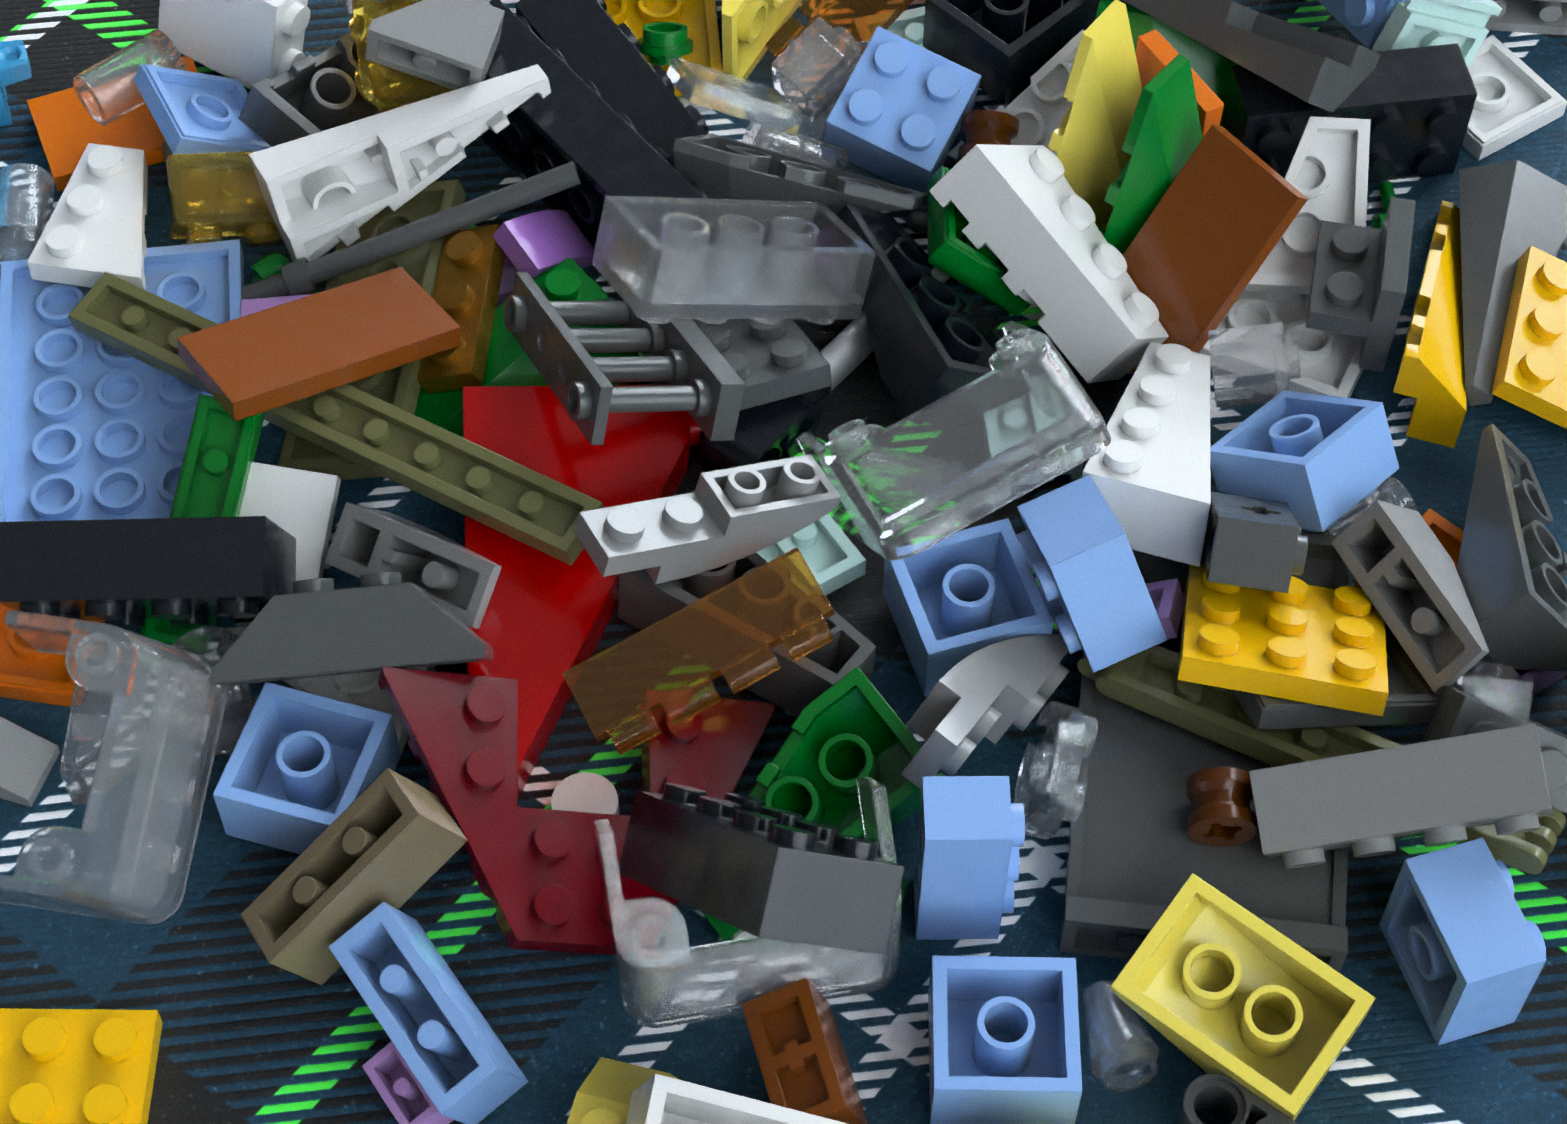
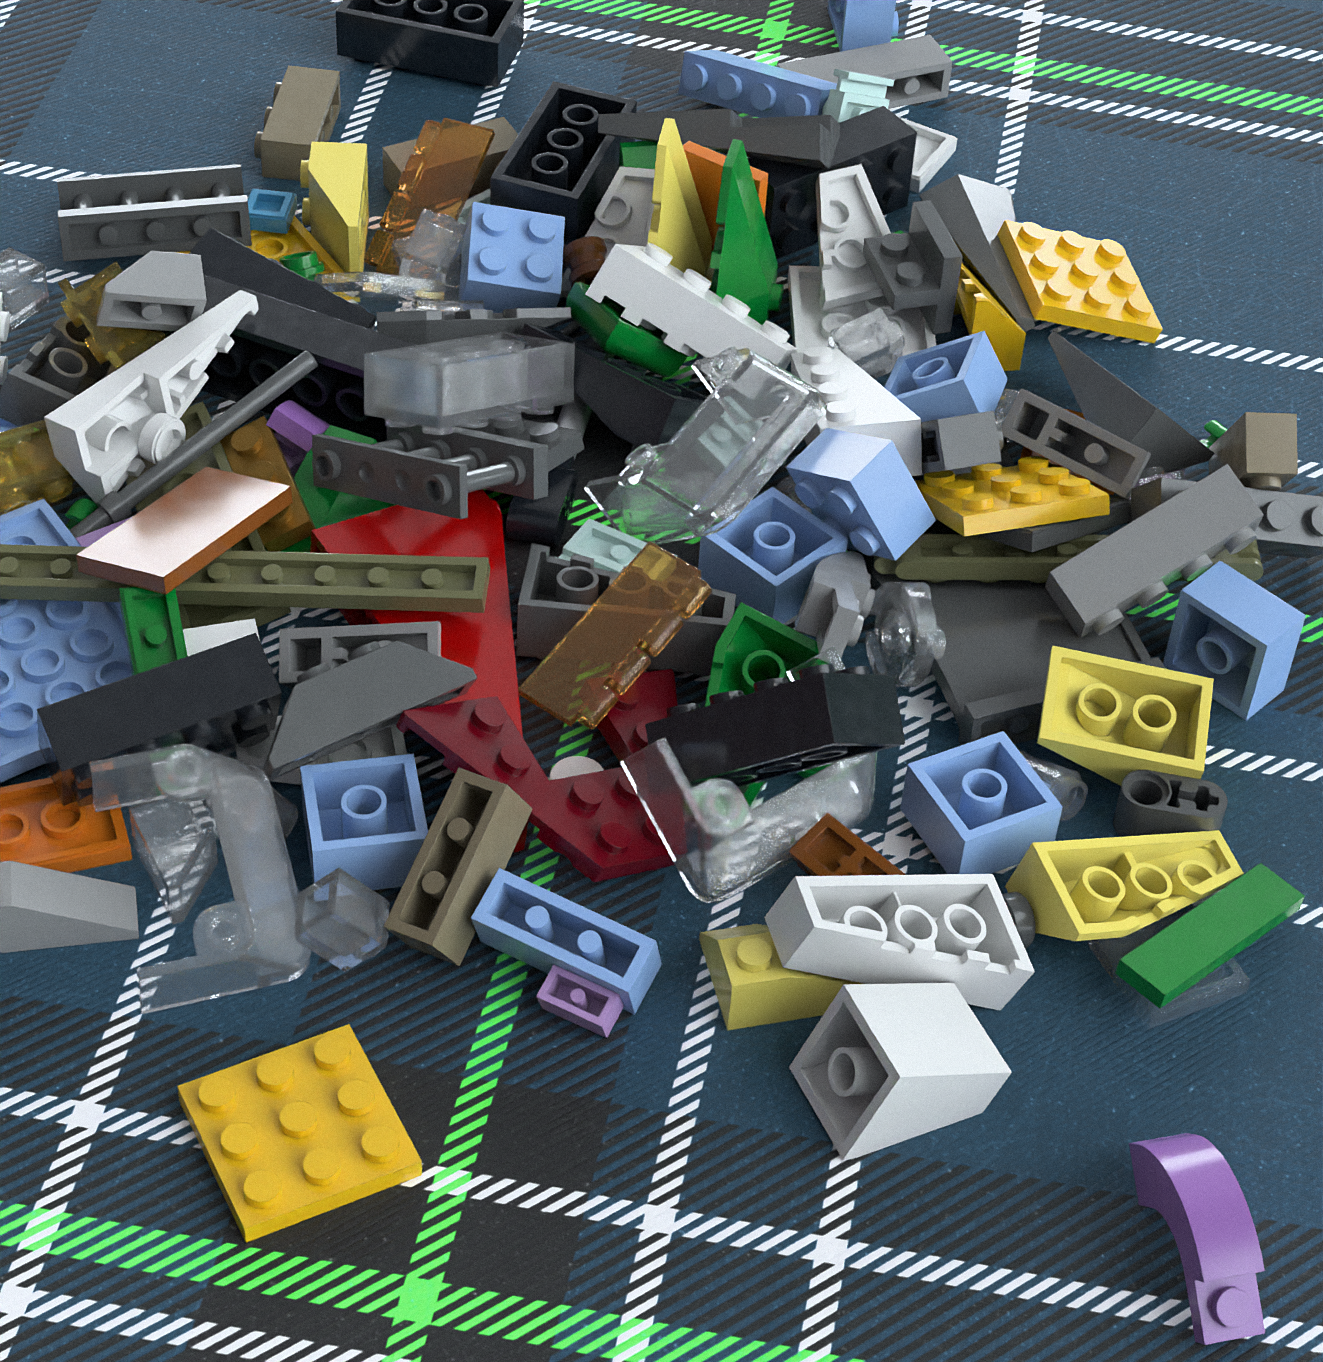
camera: 30 degrees left, 10 degrees down
(211, 882) = (341, 920): none -> clear brick
(379, 211) = (160, 437): none -> white tile
(721, 522) = (574, 550): light grey slope -> none
(966, 856) = (912, 656): light blue brick -> none
(1210, 236) = (801, 264): dark orange tile -> none
(1221, 807) = (1034, 611): reddish brown wheel -> none

